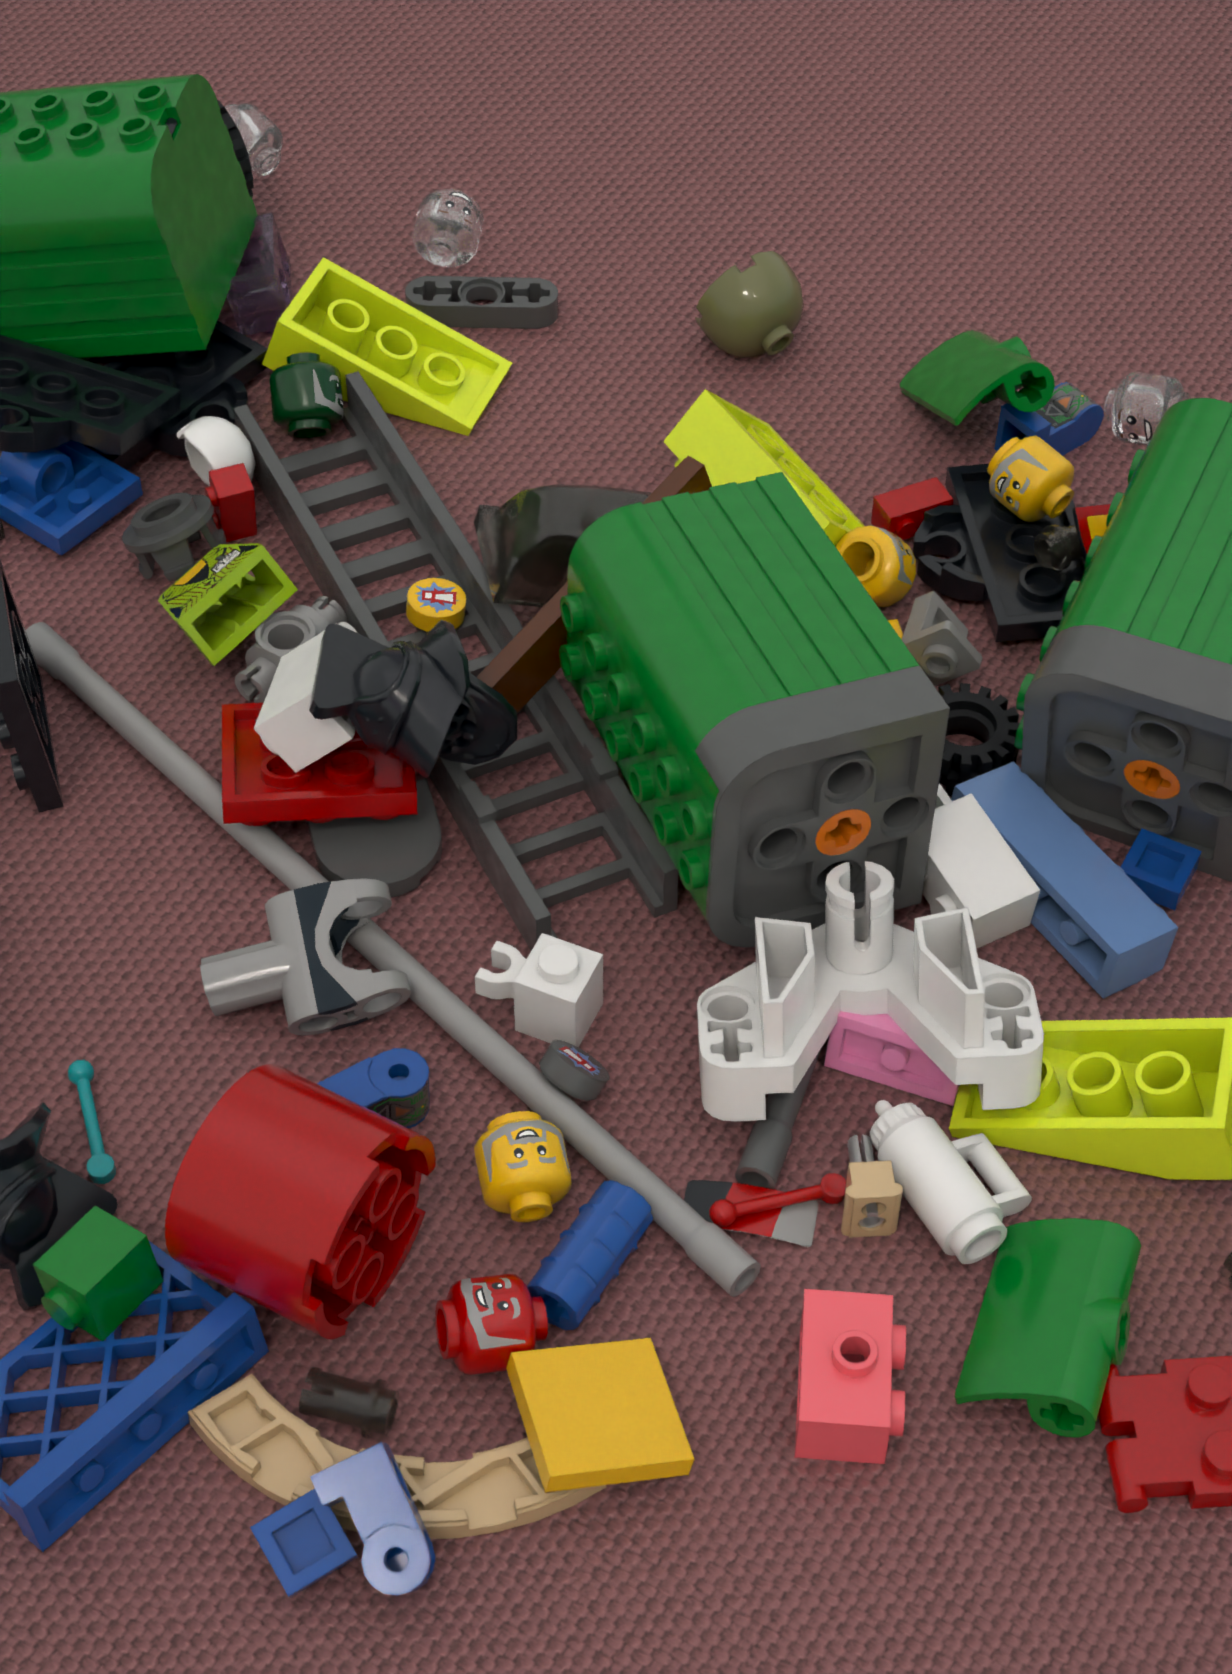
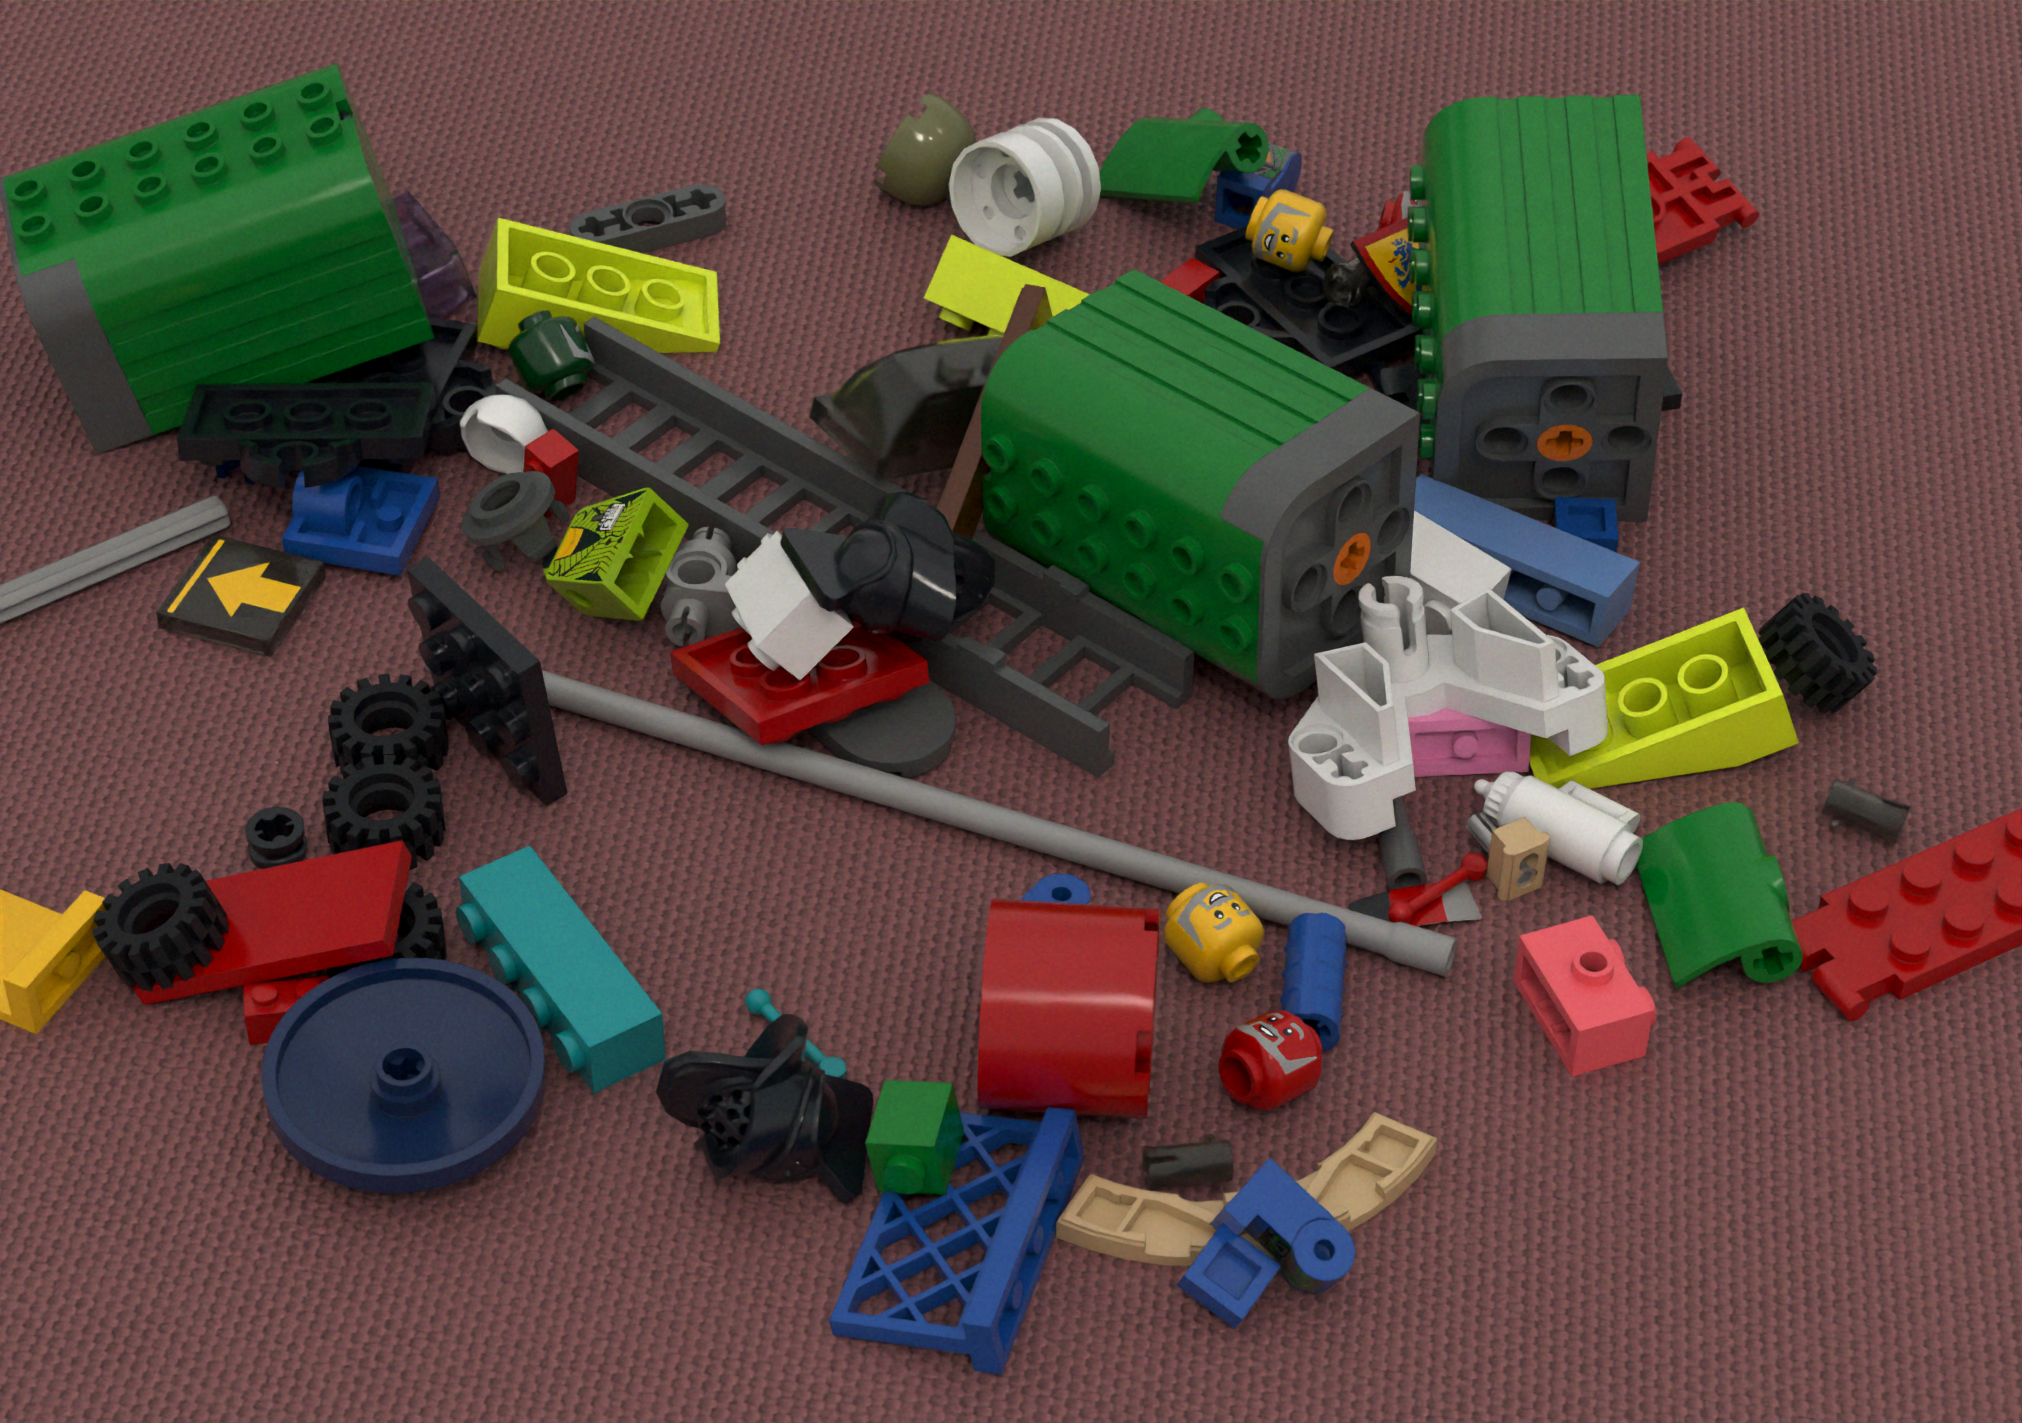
camera: 25 degrees left, 5 degrees down
(306, 961) = (913, 836): light grey connector -> none
(435, 601) = (808, 505): yellow tile -> none
(448, 224) = (572, 159): clear head -> none
(552, 990) = (1143, 788): white brick -> none
(573, 1070) = (1202, 847): dark grey tile -> none
(599, 1414) = (1405, 1094): yellow tile -> none
(811, 363) = (1024, 186): none -> white wheel
(1140, 403) = (1339, 144): clear head -> none

